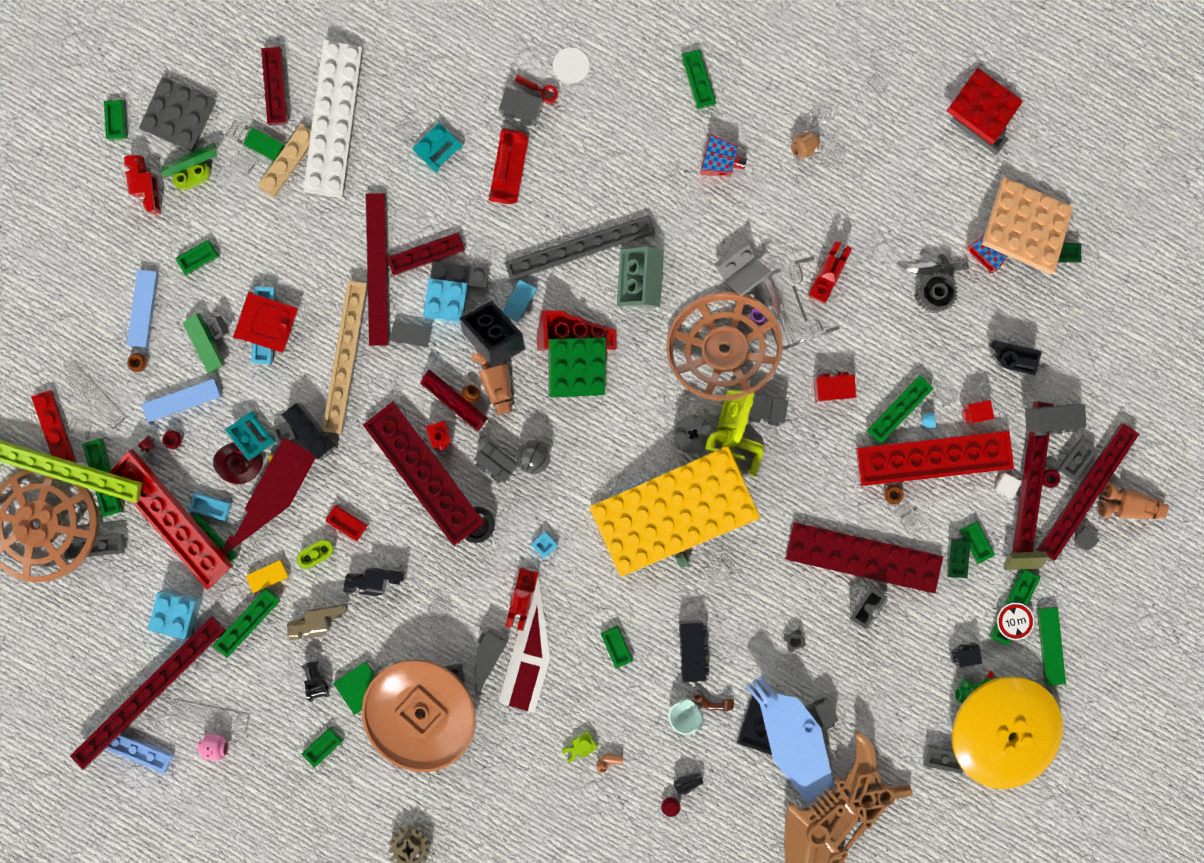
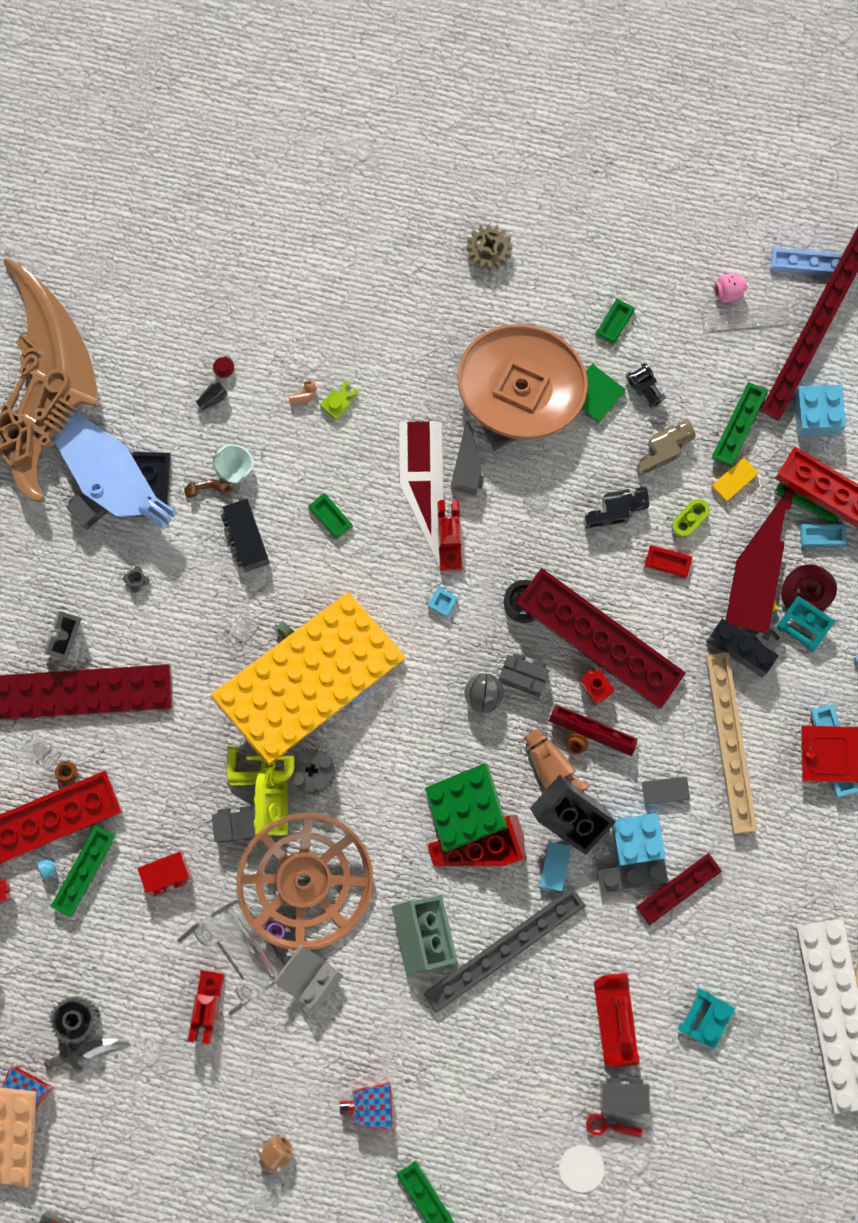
camera: 170 degrees right, 10 degrees down
(377, 269) = (728, 855): dark red tile -> none

